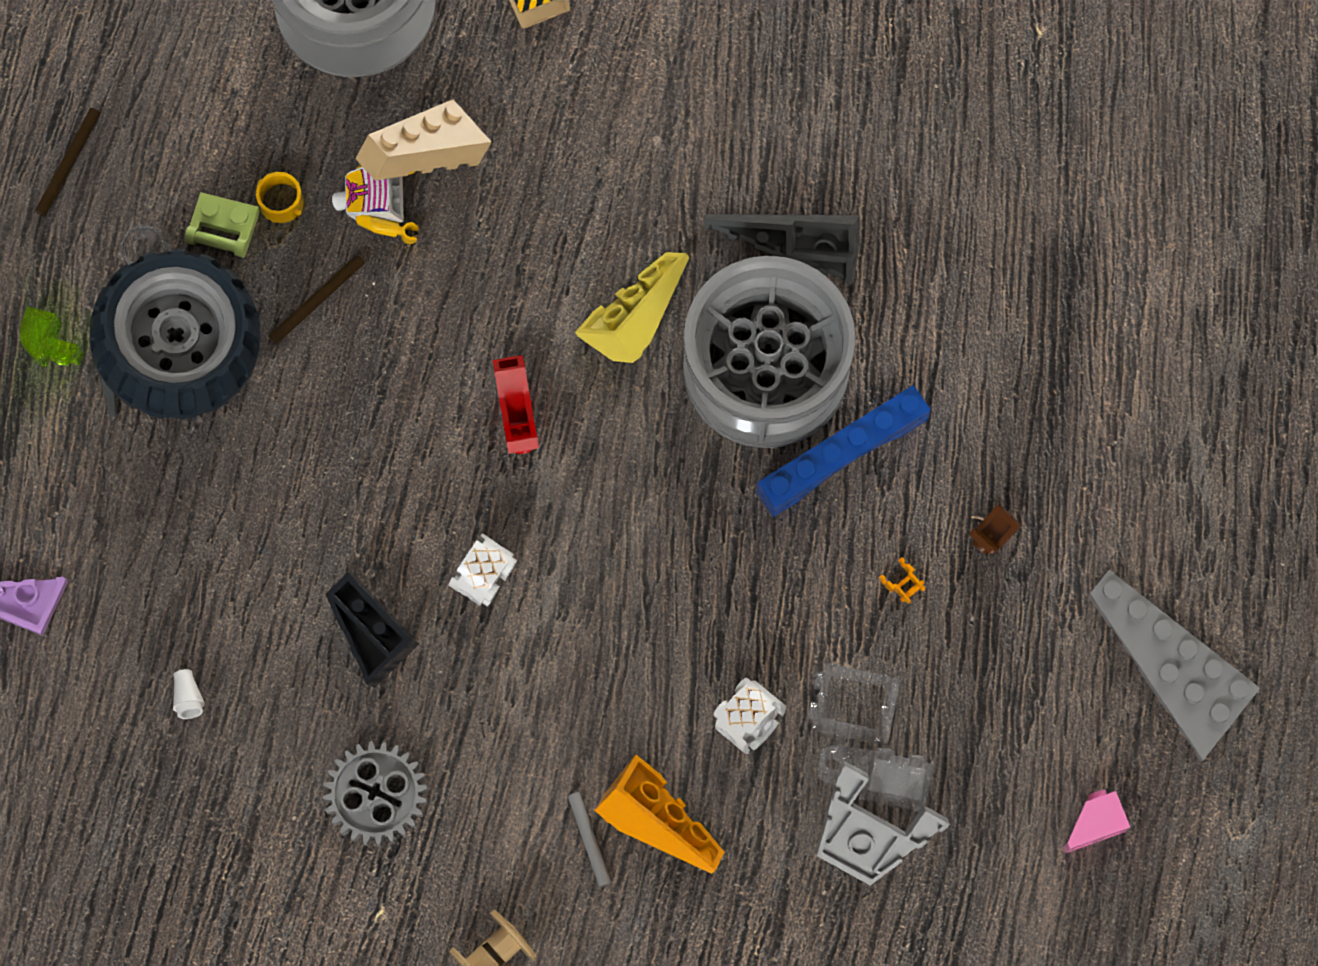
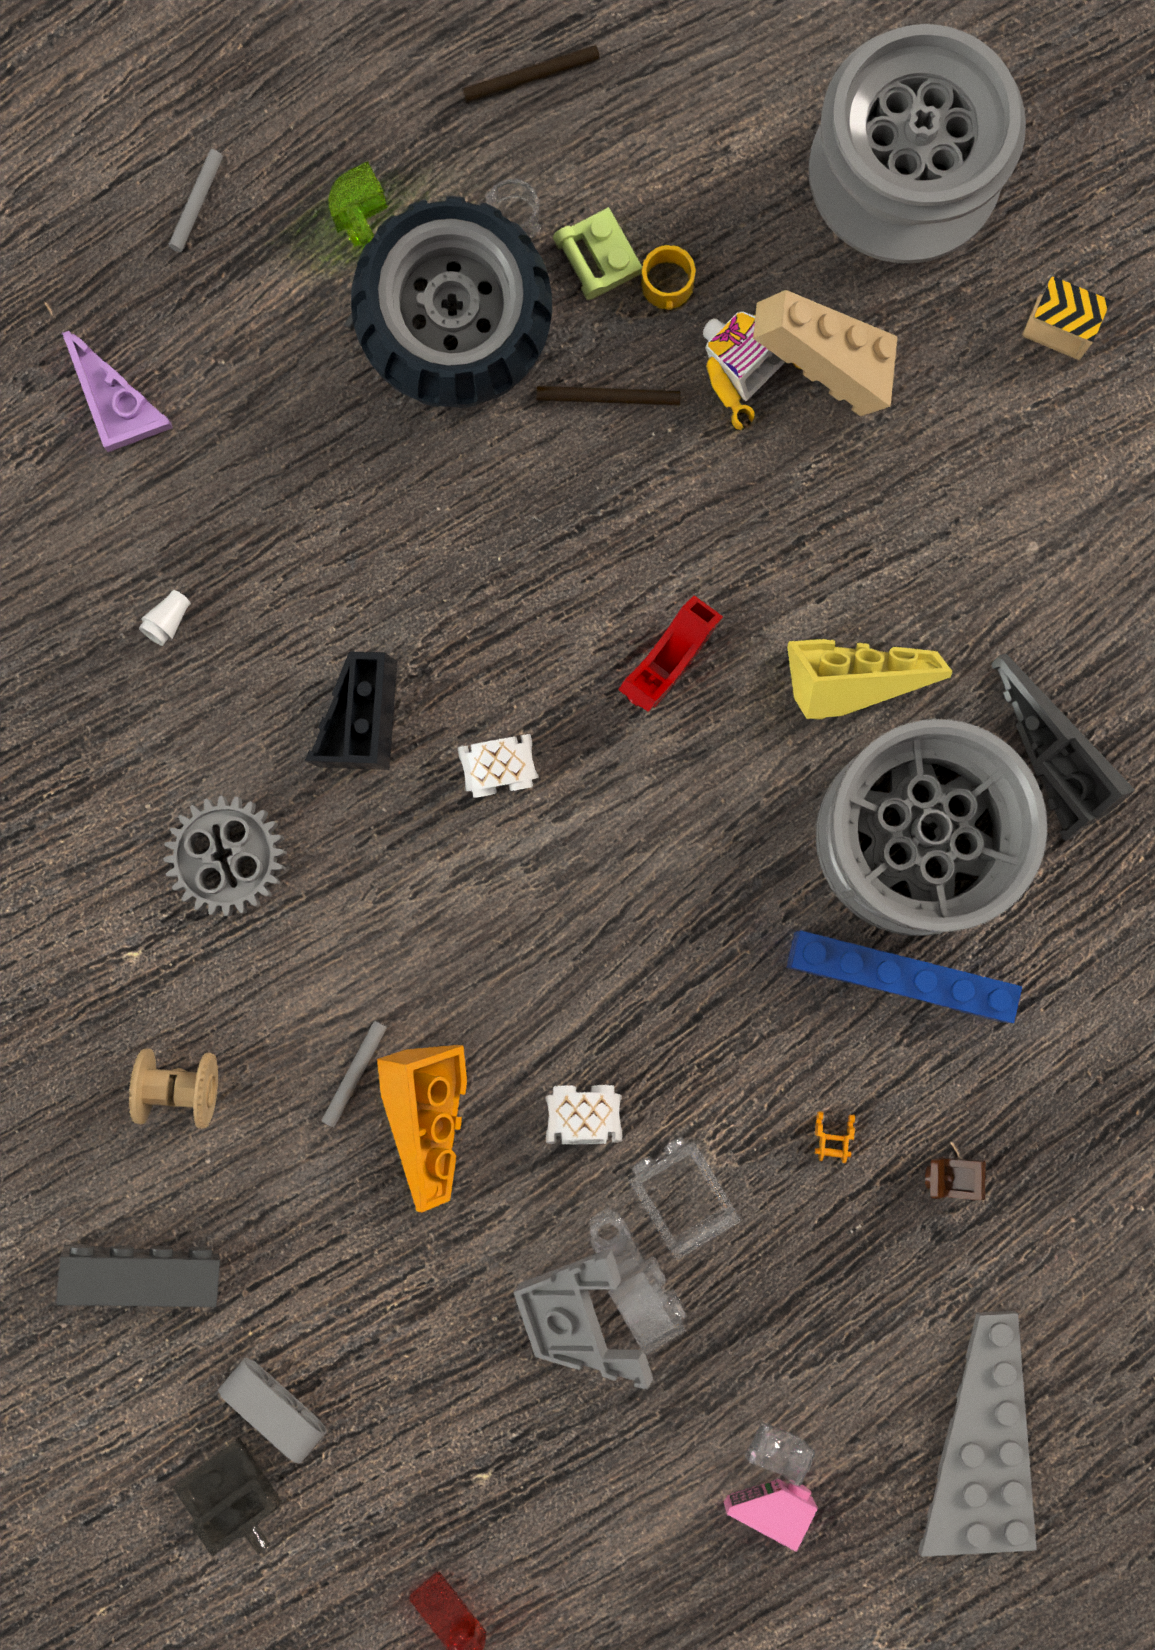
camera: 50 degrees right, 10 degrees up
(1064, 786) = (781, 1453): none -> clear bracket

